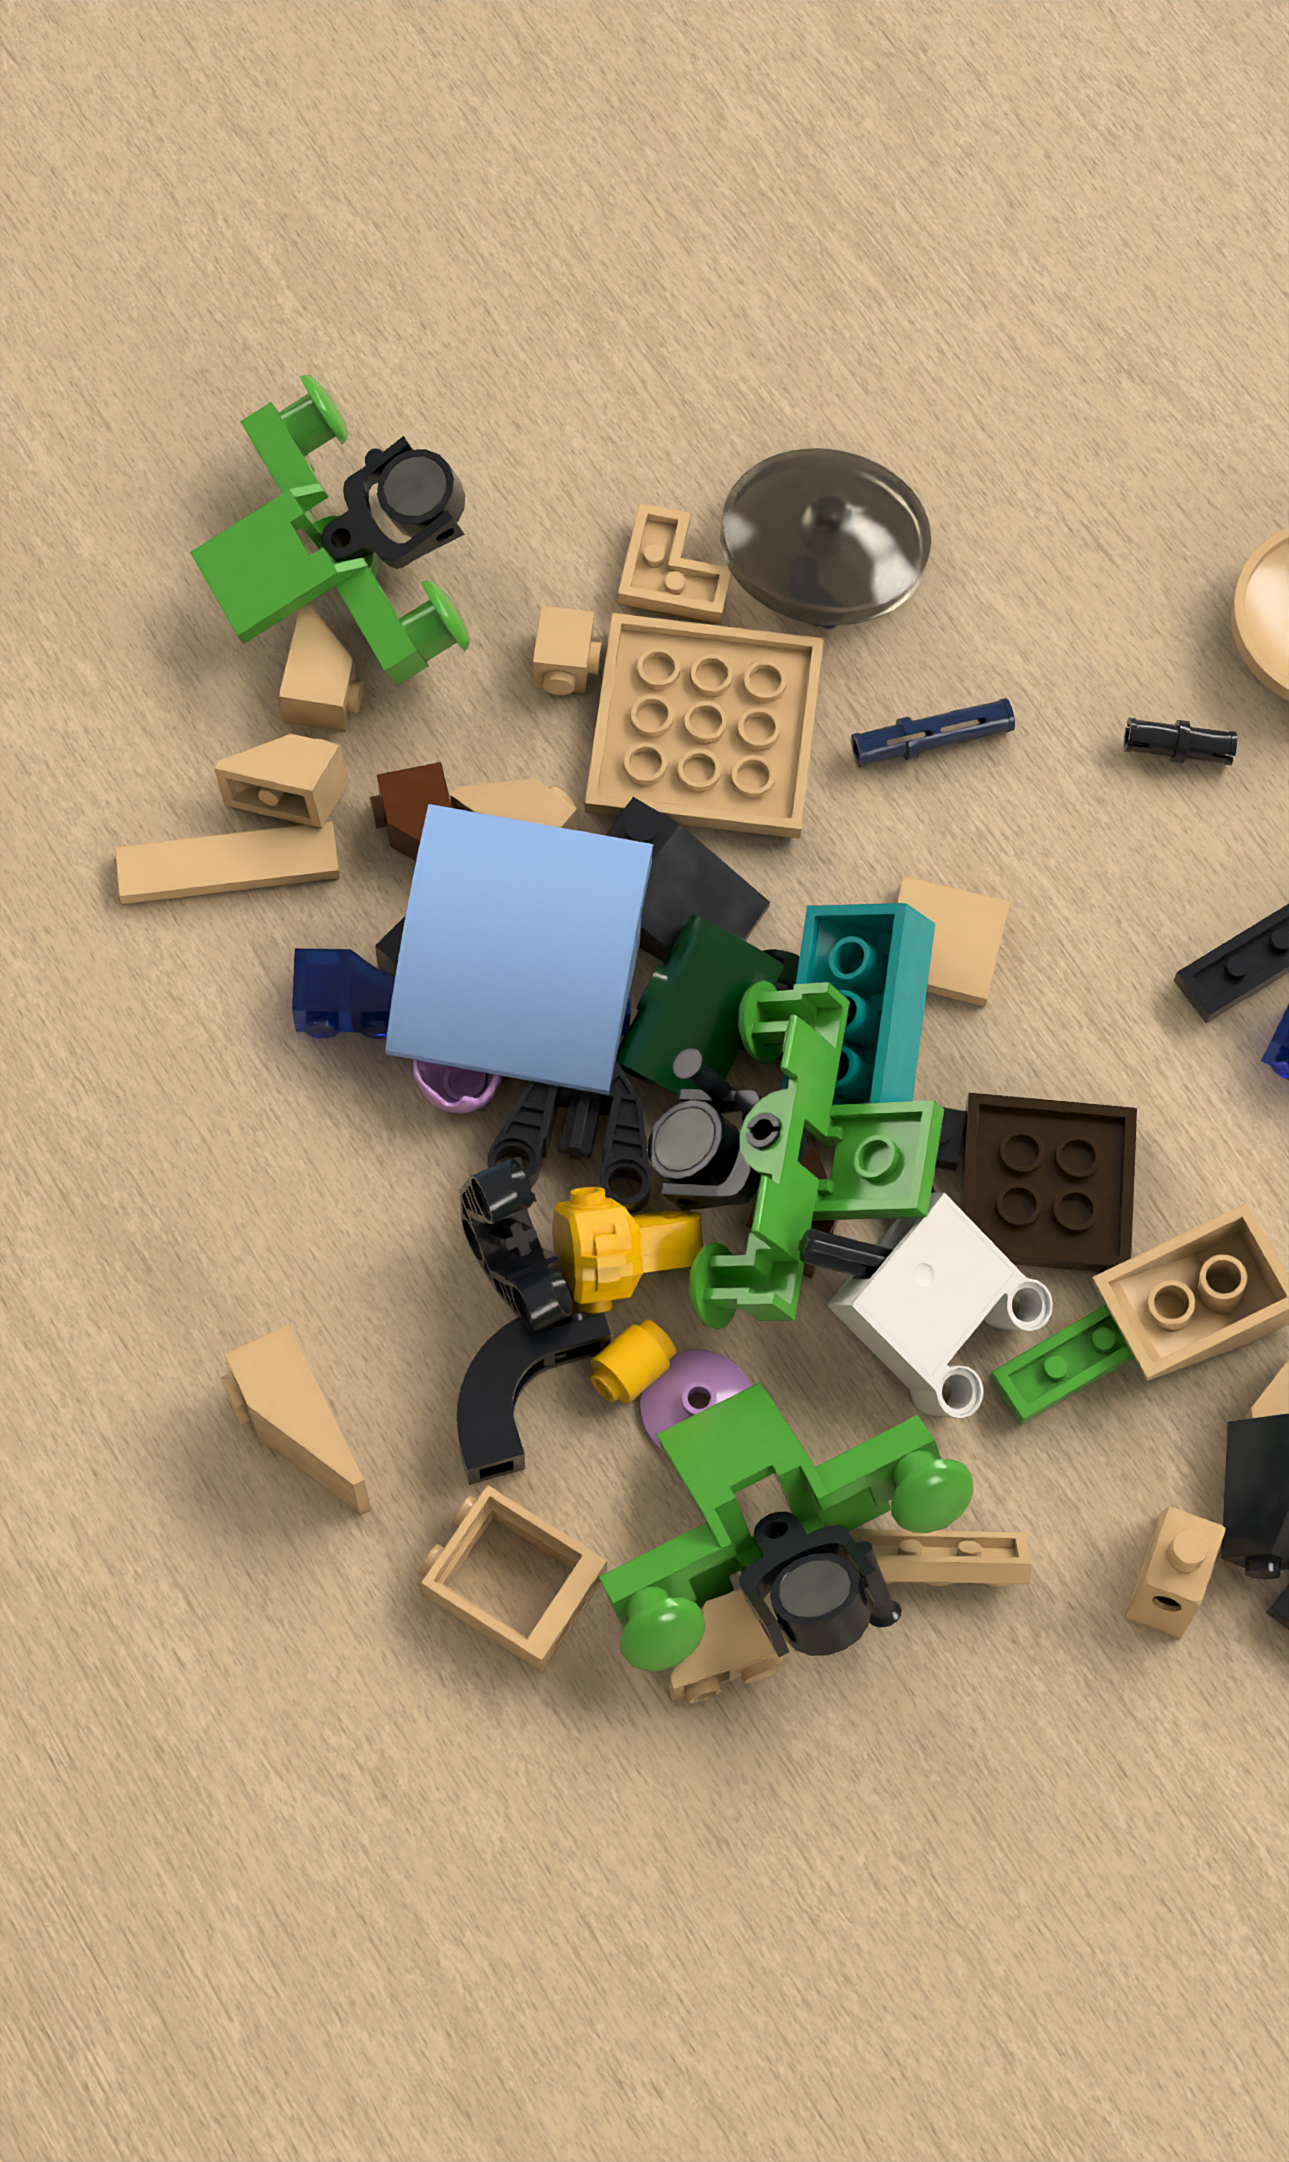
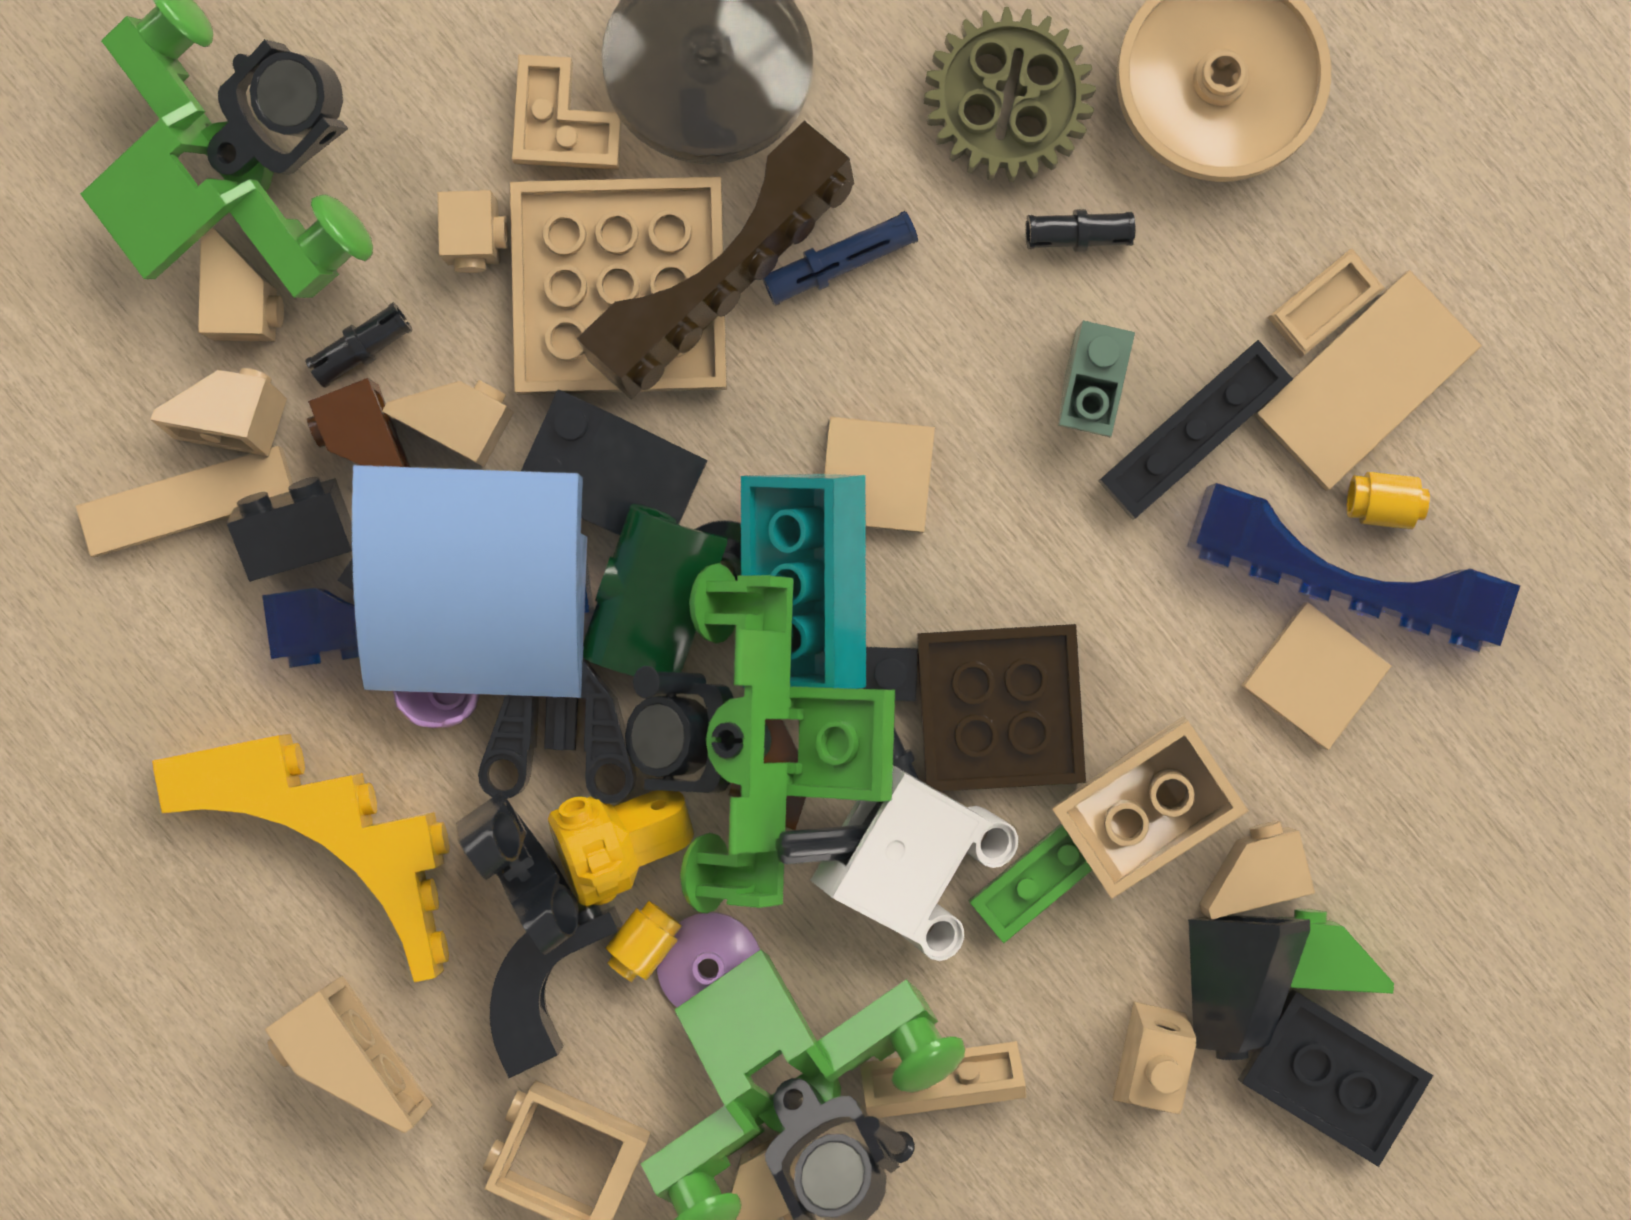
camera: 10 degrees left, 20 degrees up
(258, 1138) = (388, 856): none -> yellow arch
(334, 894) = (290, 527): none -> black brick
(433, 740) = (358, 345): none -> black pin
(732, 757) = (644, 334): none -> dark brown arch
(1169, 624) = (1053, 105): none -> olive gear
(1183, 868) = (1095, 378): none -> sand green slope

